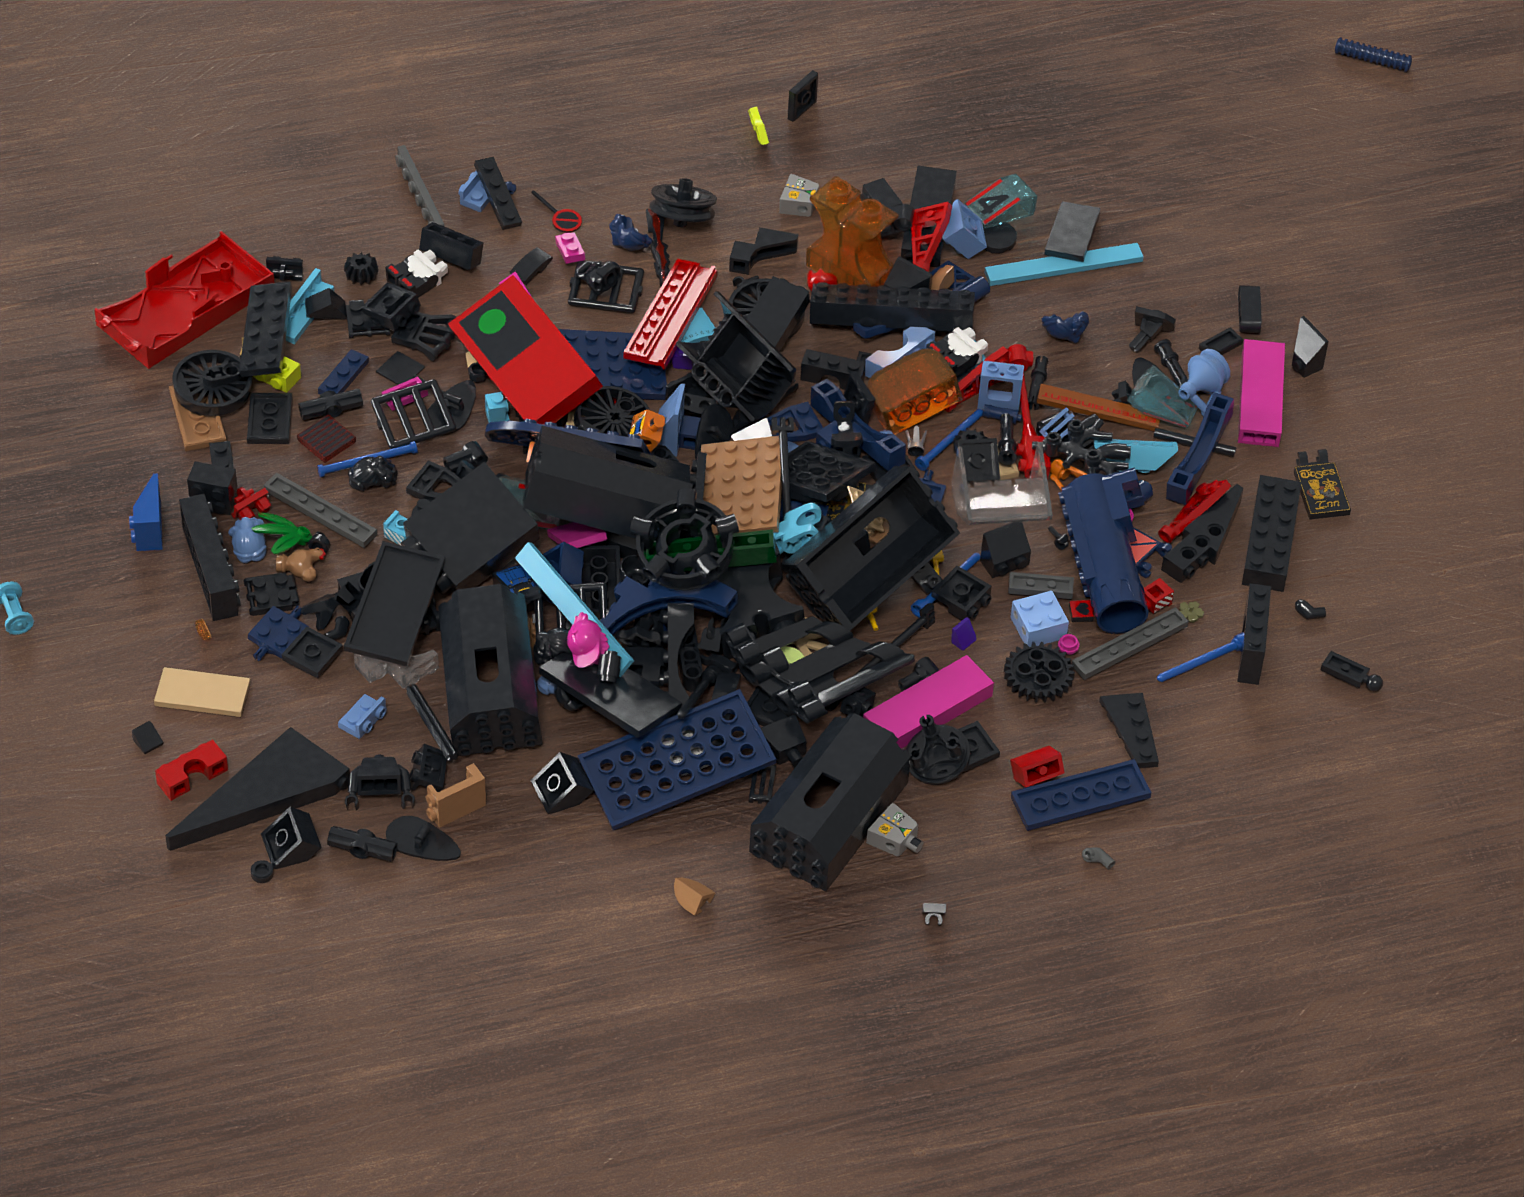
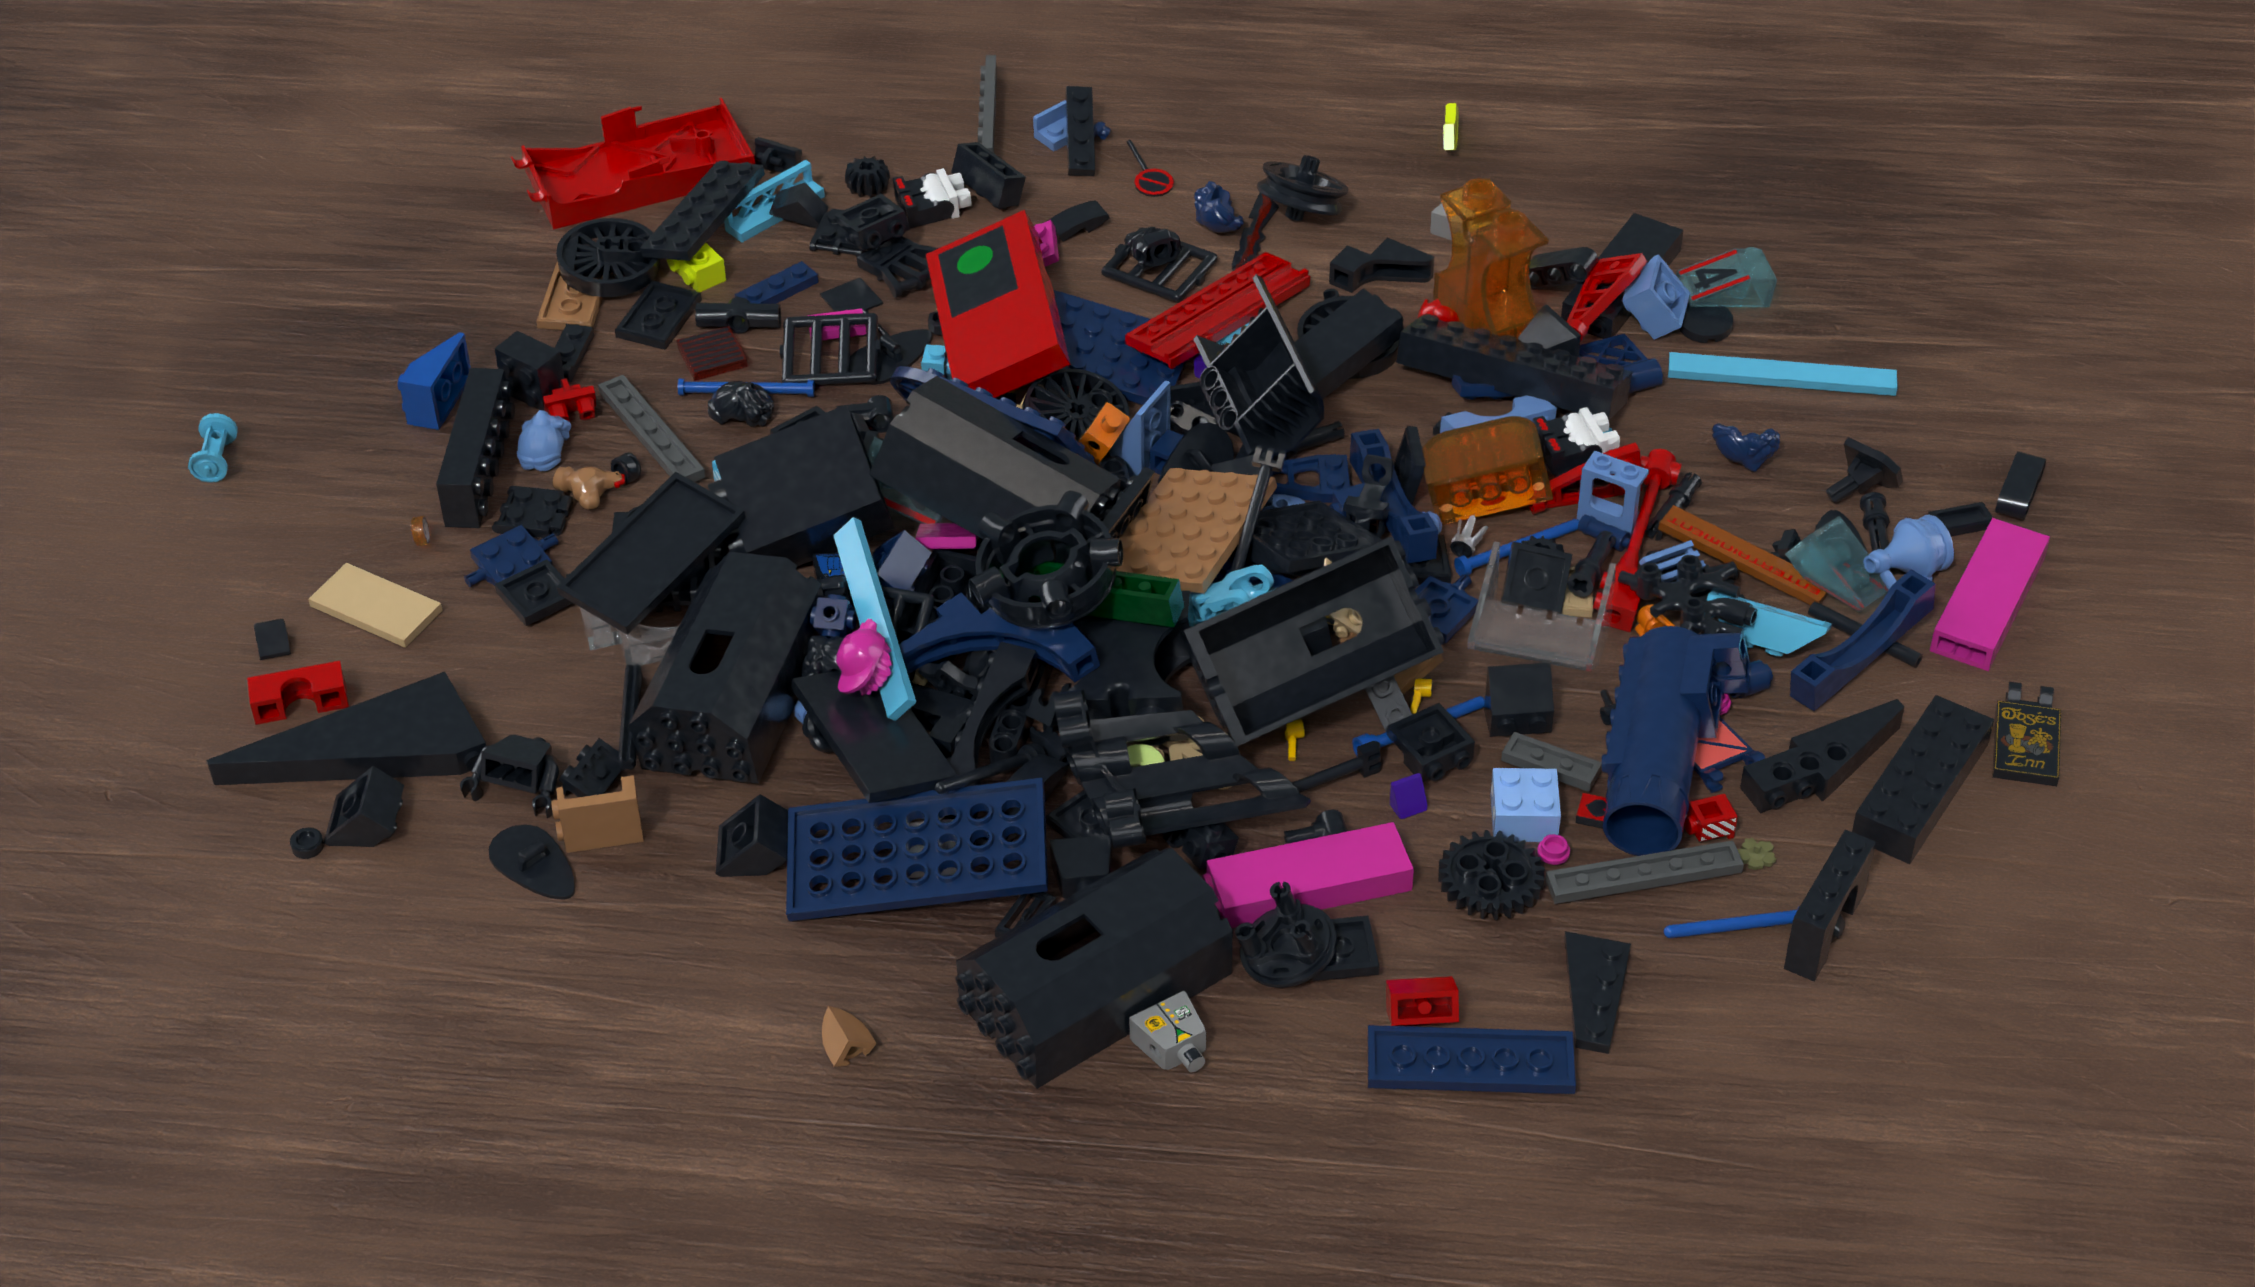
camera: 25 degrees right, 5 degrees down
(292, 534) = (593, 443): green plant -> none
(324, 606) = (582, 542): black animal -> none
(362, 843) = (450, 843): black piece -> none
(363, 716) = (553, 686): medium blue bracket -> none
(539, 623) = (842, 621): none -> dark blue brick
(570, 247) = (1137, 210): dark pink plate -> none
(609, 667) = (876, 700): black brick -> none
(802, 96) = (1523, 105): black tile -> none
(819, 364) = (1385, 413): black arch -> none
(880, 191) = (1566, 234): black brick -> none
(933, 909) = (1170, 1159): tile -> none
(943, 278) = (1603, 348): medium nougat brick -> none
(1072, 231) = (1811, 336): tile -> none
(1098, 855) = (1455, 1153): dark grey arm -> none
(1206, 495) = (1847, 702): red plate -> none
(1309, 349) = (2082, 553): slope -> none
(1309, 611) = (1934, 900): black arm -> none
(1350, 672) = (1962, 1000): black plate -> none

